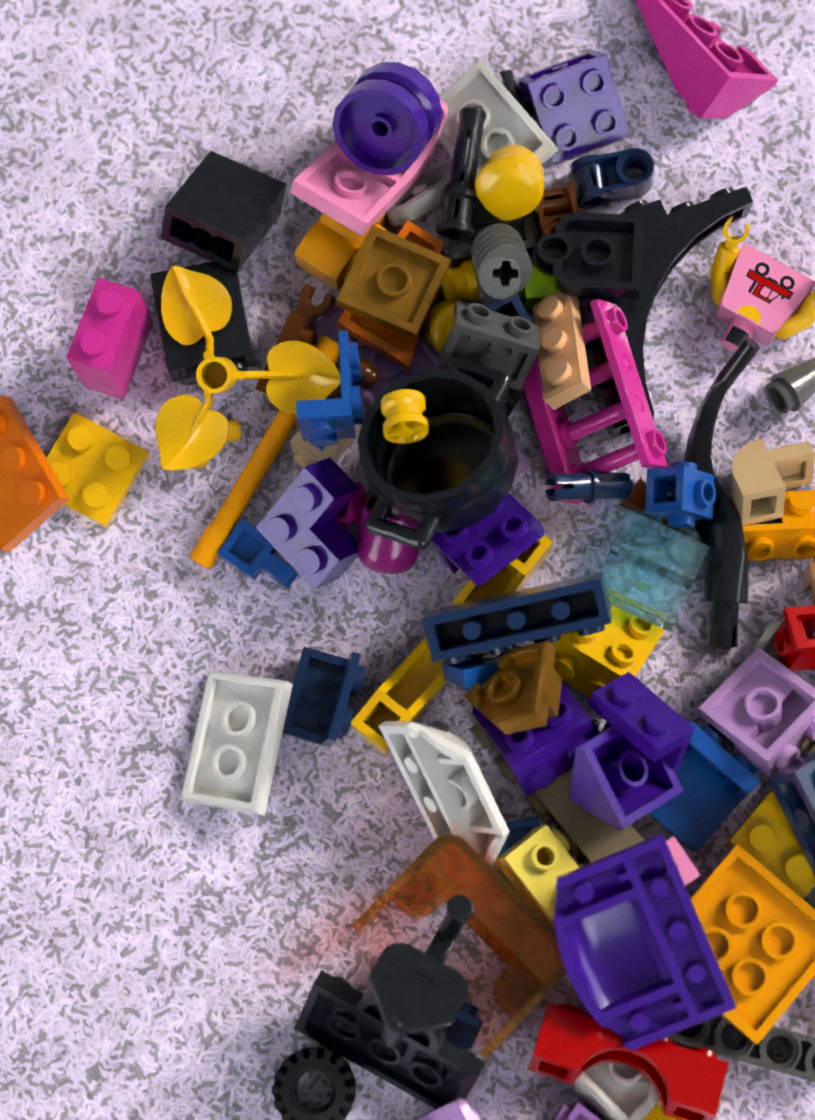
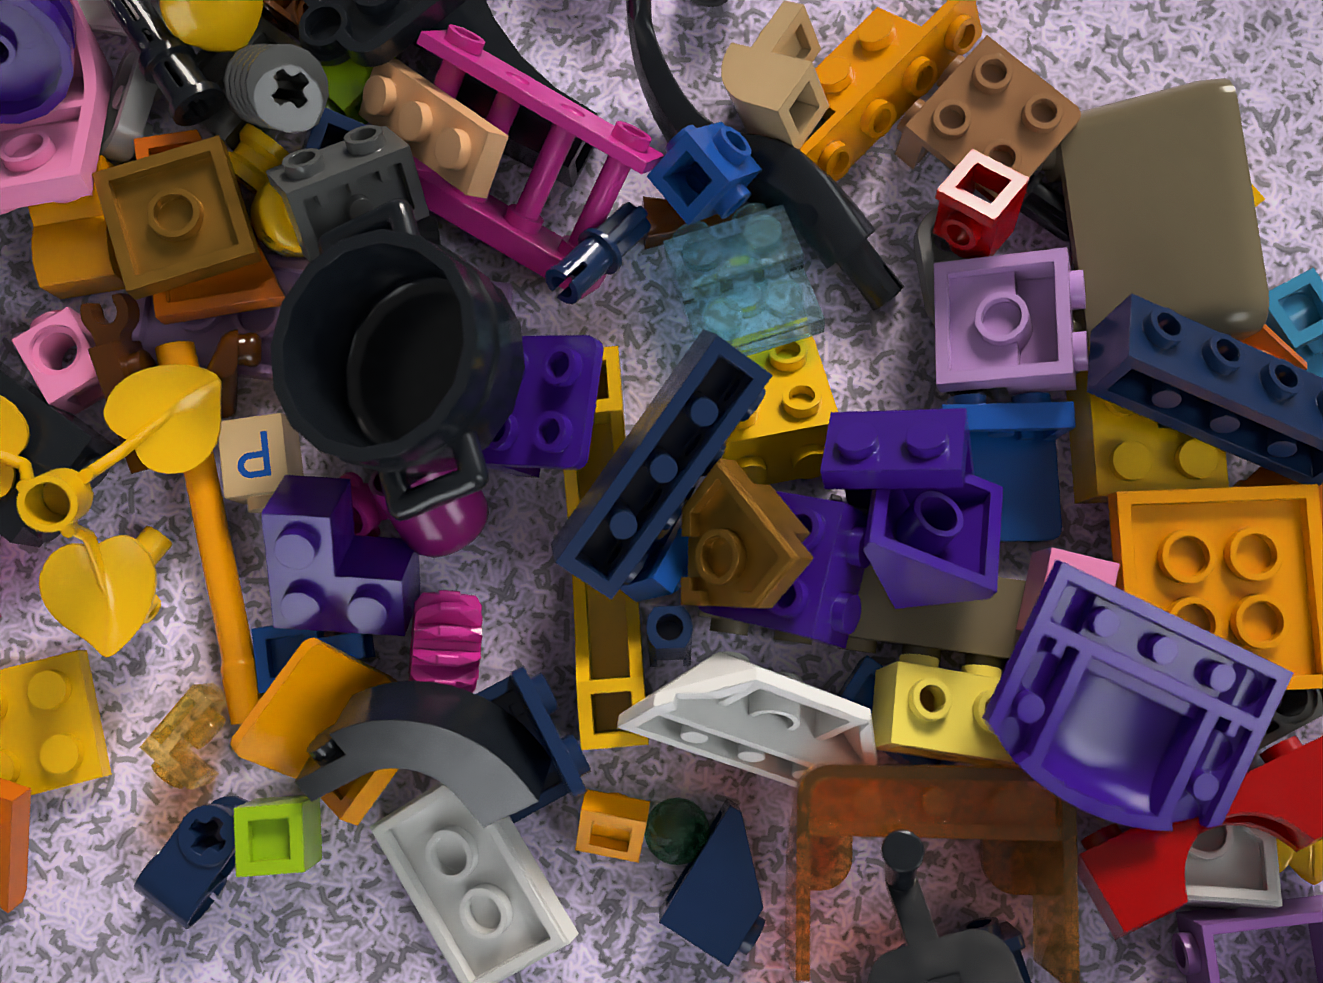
camera: 50 degrees left, 5 degrees up
(107, 608) = (192, 863): none -> dark blue piece
(164, 631) = (277, 835): none -> lime panel
(170, 537) = (188, 724): none -> clear yellow bracket
(239, 603) = (299, 707): none -> light orange bracket
(272, 319) = (43, 352): none -> bright pink brick
(292, 649) = (434, 731): none -> black arch
(329, 780) = (612, 825): none -> light orange plate
(330, 613) = (446, 639): none -> dark pink gear
(335, 419) = (246, 425): blue bracket -> none
(352, 861) = (718, 893): none -> dark blue slope
(358, 814) = (676, 830): none -> clear green plate
(404, 416) = (321, 350): yellow wheel -> none
(445, 709) = (669, 634): none -> dark blue bar

